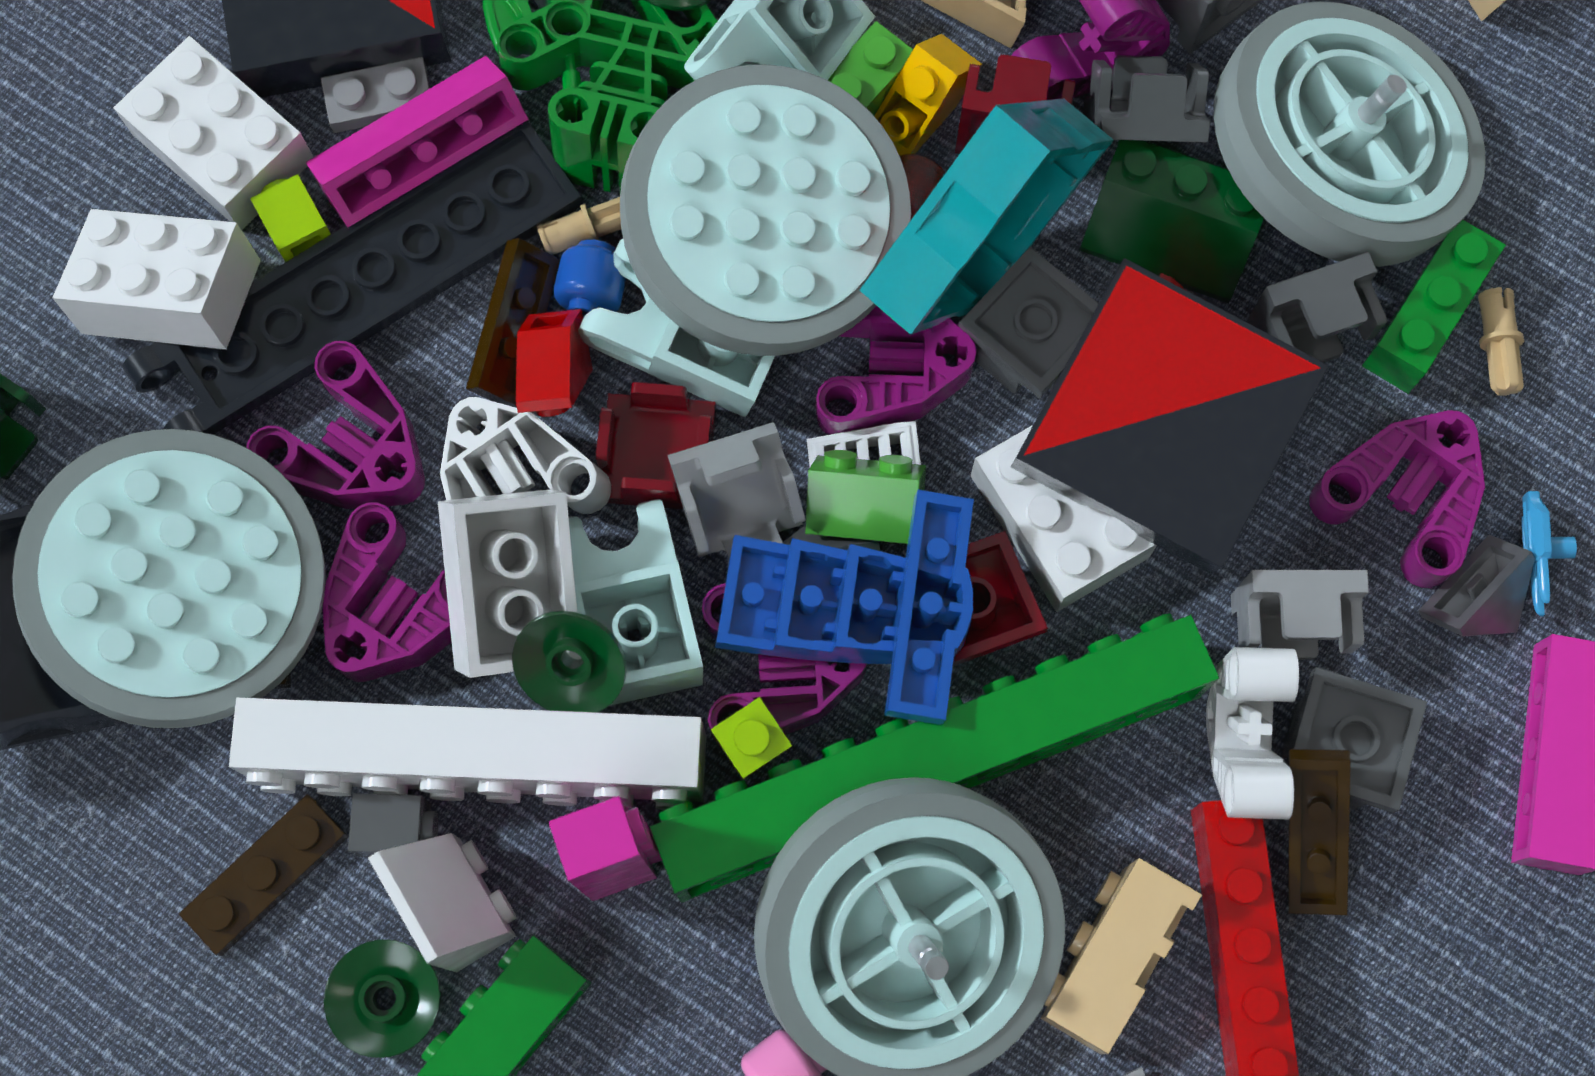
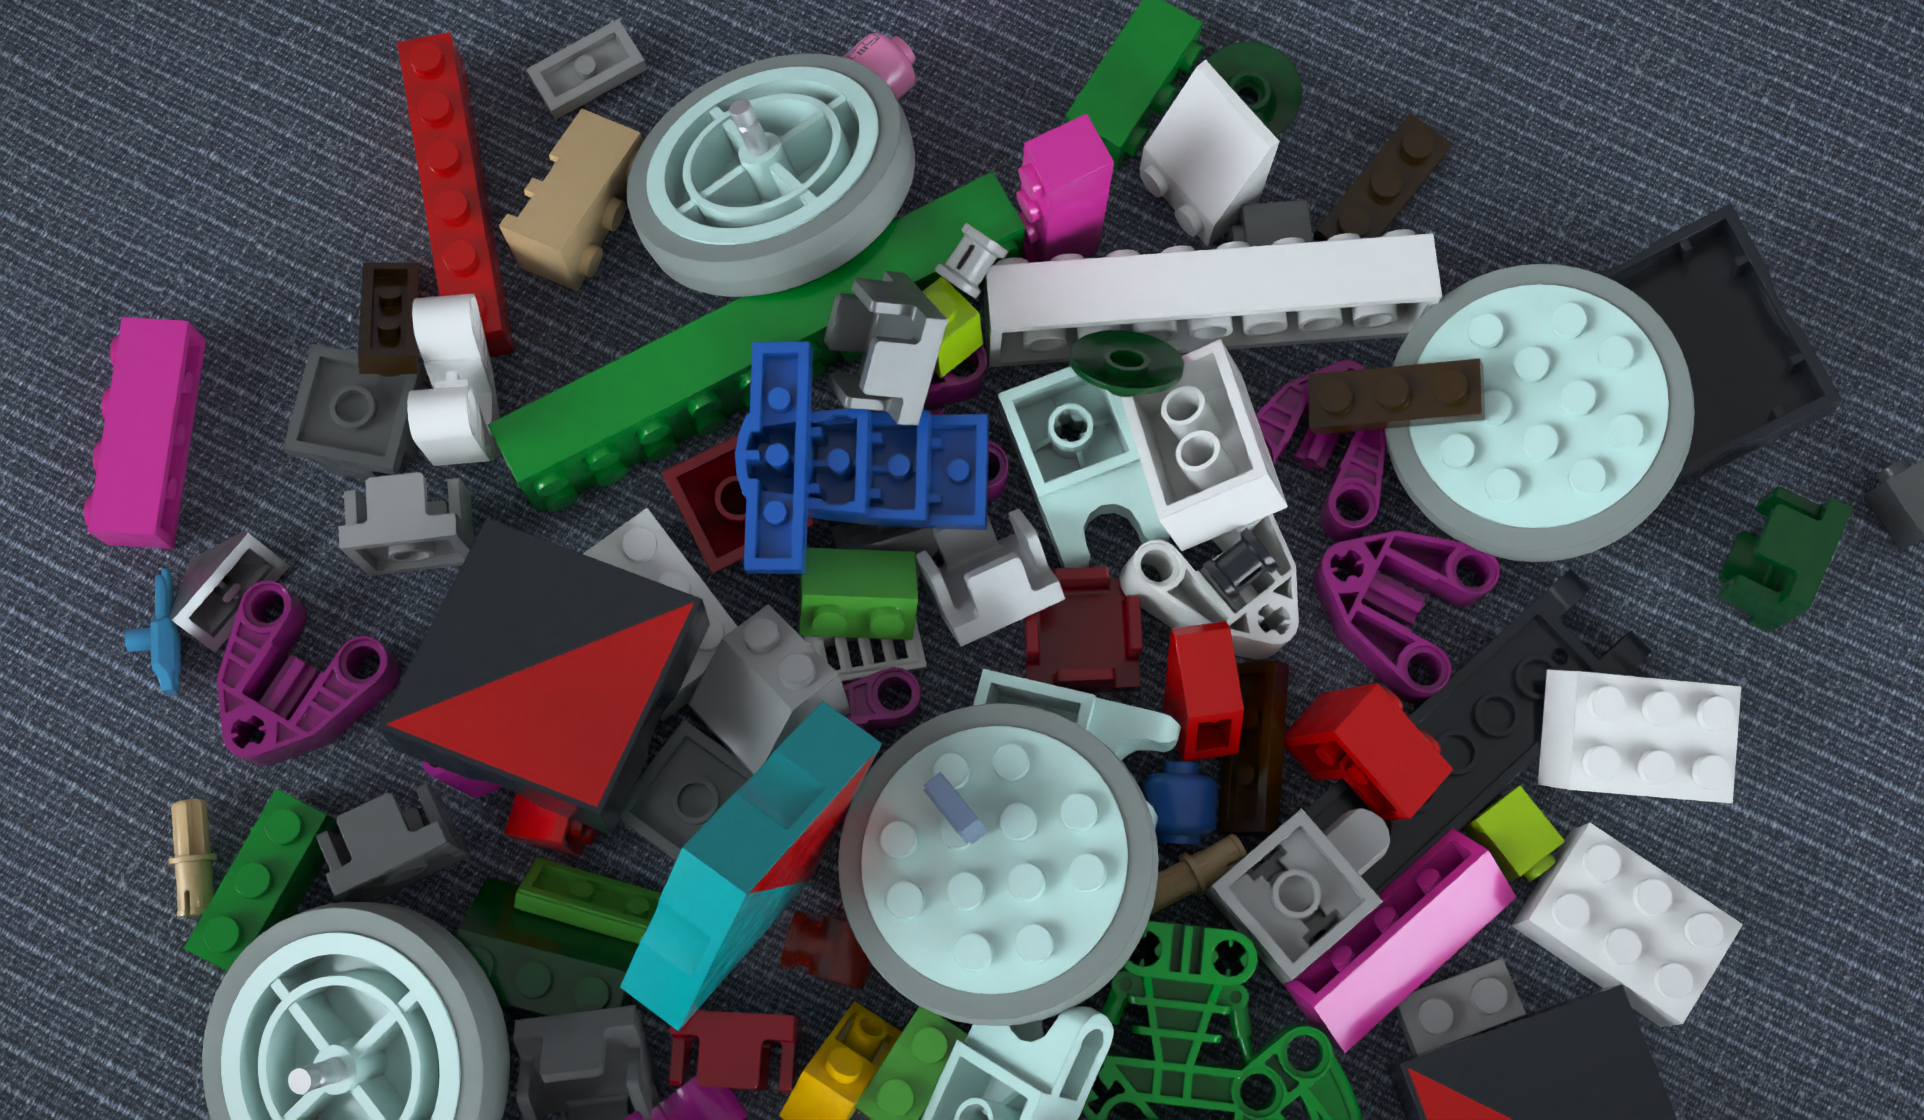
camera: 170 degrees right, 0 degrees up
(306, 605) = (1397, 397): none -> dark brown plate
(409, 294) = (1371, 746): none -> red brick
(494, 464) = (1240, 565): none -> black bush
(497, 173) = (1303, 887): none -> light grey brick
(721, 765) = (971, 260): none -> light grey bush
(798, 230) = (954, 809): none -> sand blue tile
(798, 701) = (899, 344): none -> dark grey panel
(961, 399) = (763, 687): none -> light grey slope
(1102, 244) = (587, 900): none -> bright green tile

